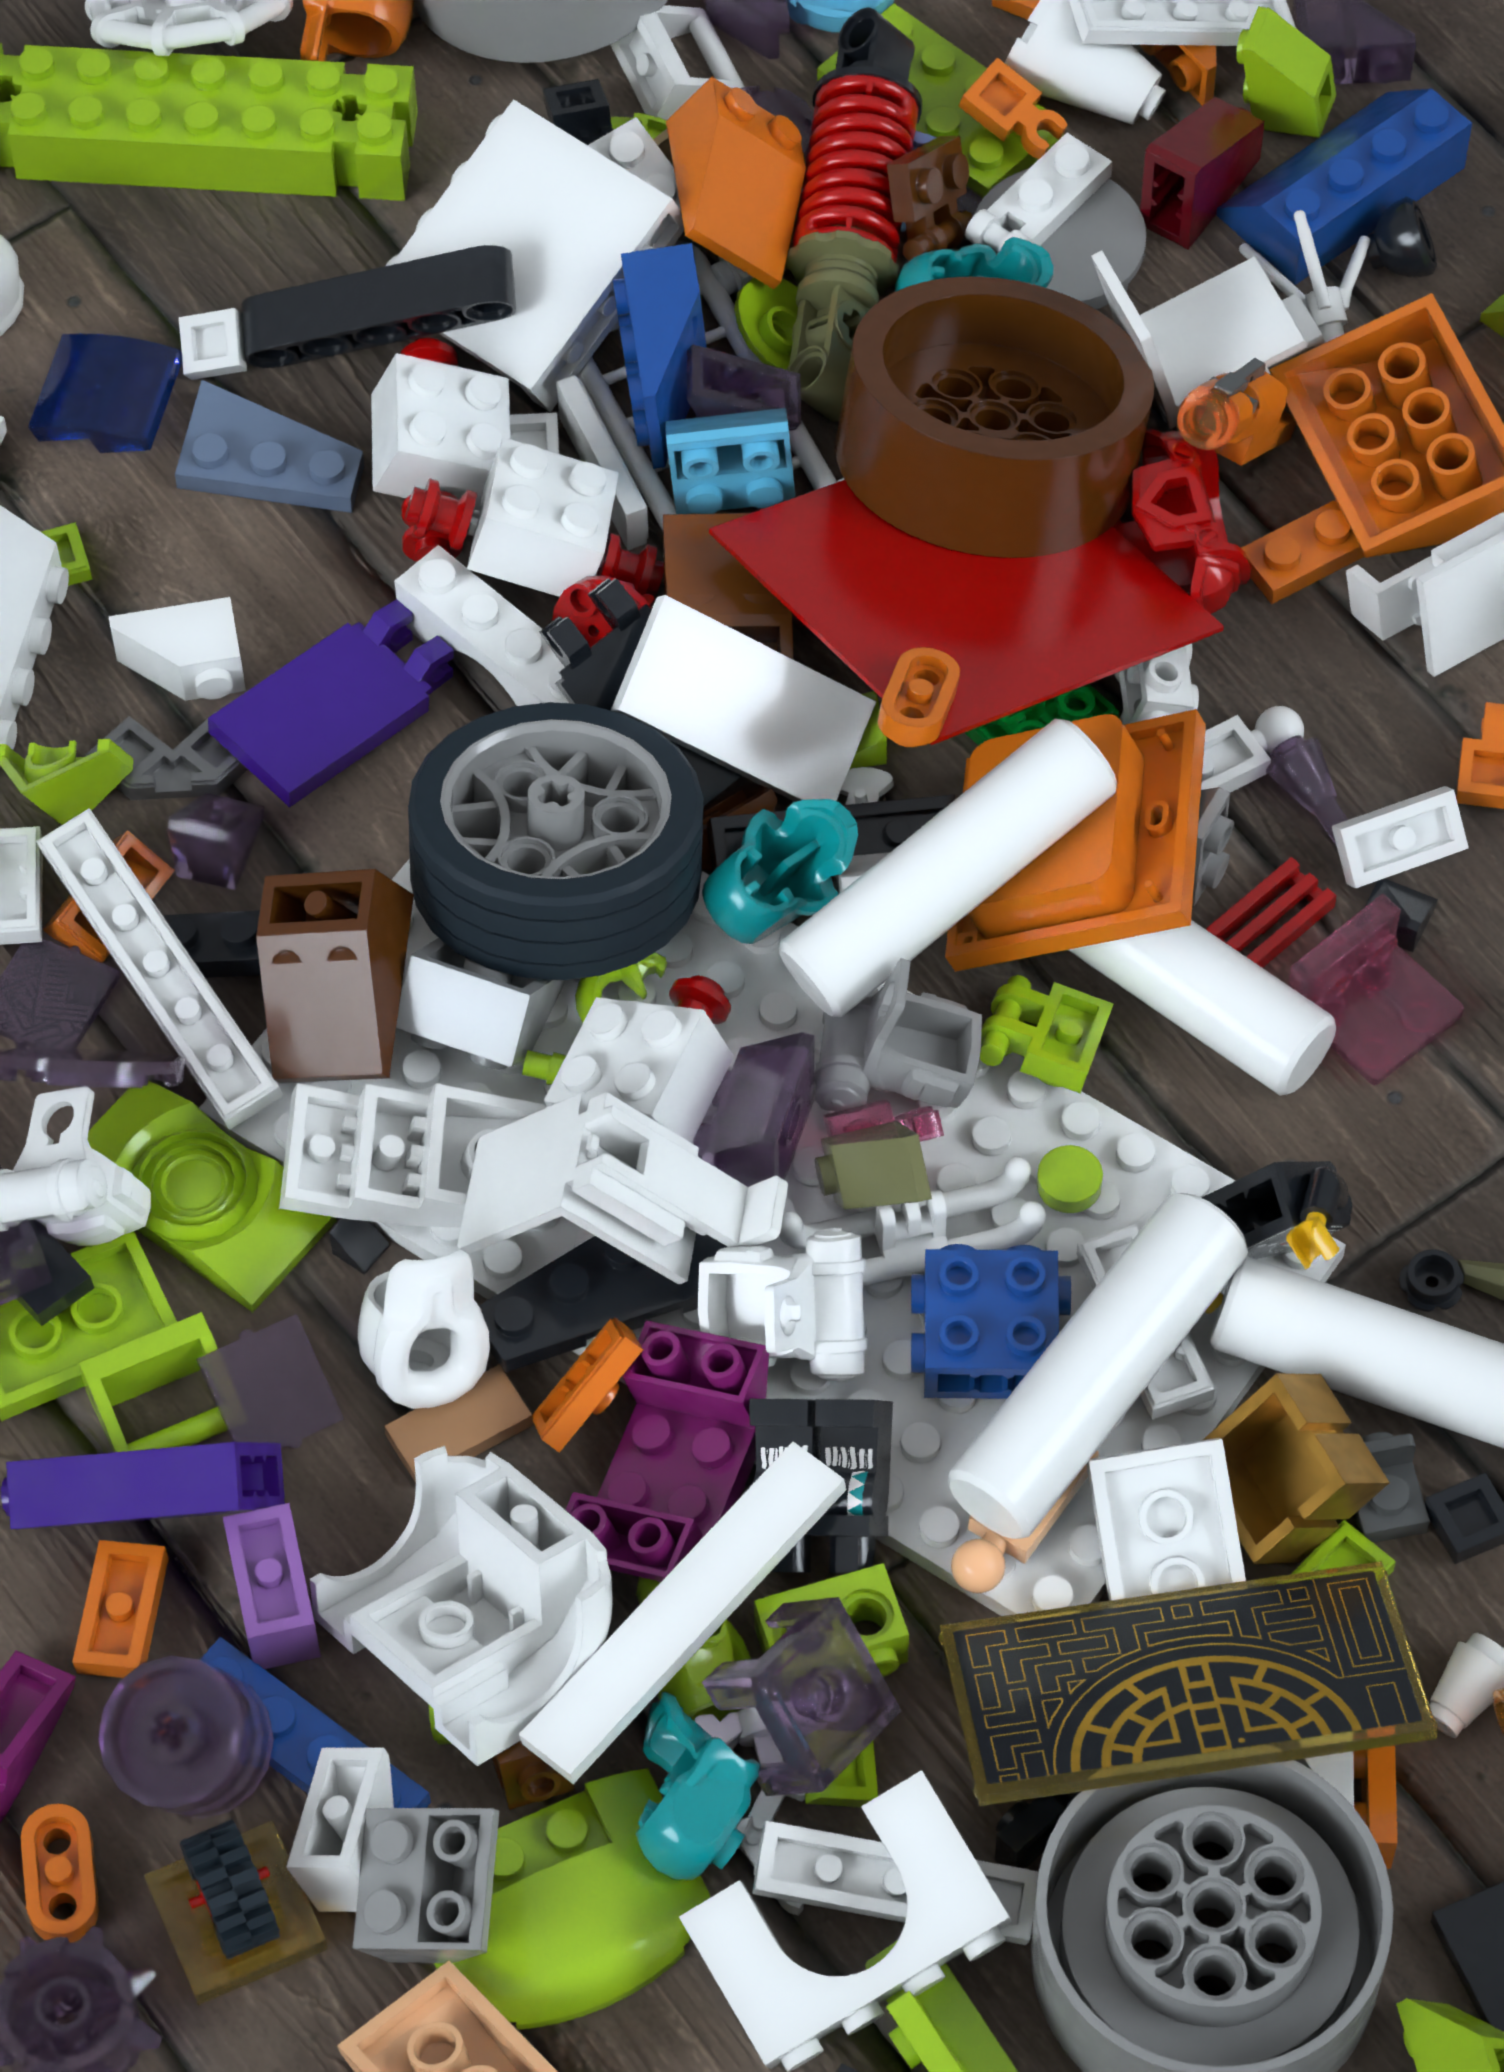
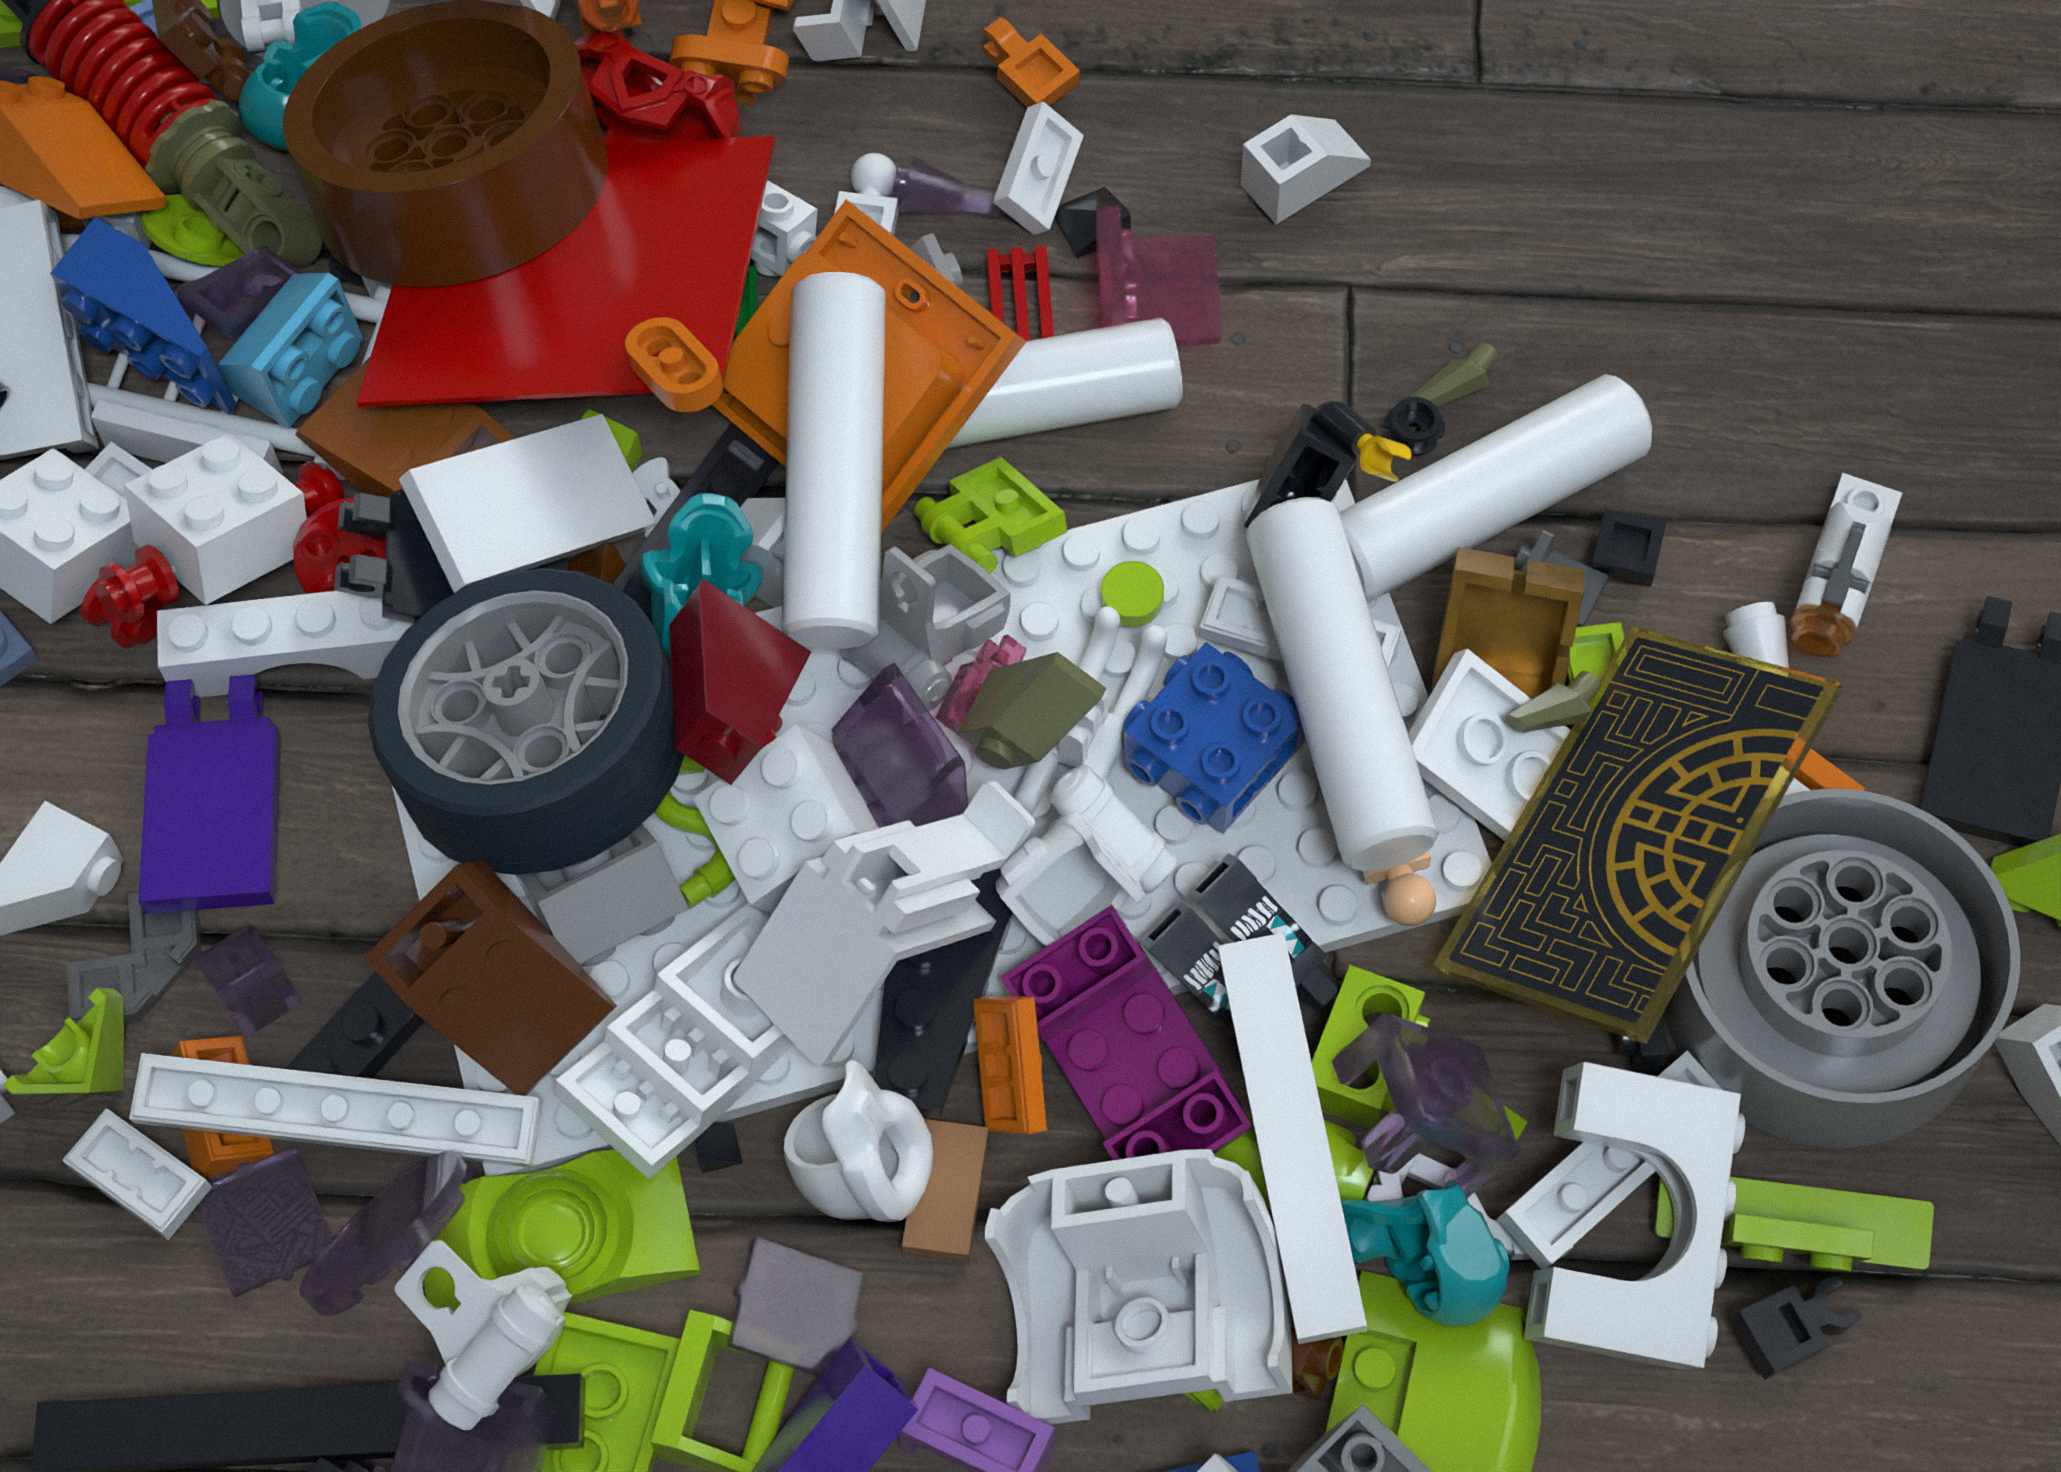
camera: 50 degrees left, 5 degrees up
(699, 941) = (728, 680): none -> dark red slope
(1246, 1550) = (1557, 705): none -> olive bar
(1280, 568) = (751, 65): none -> orange plate

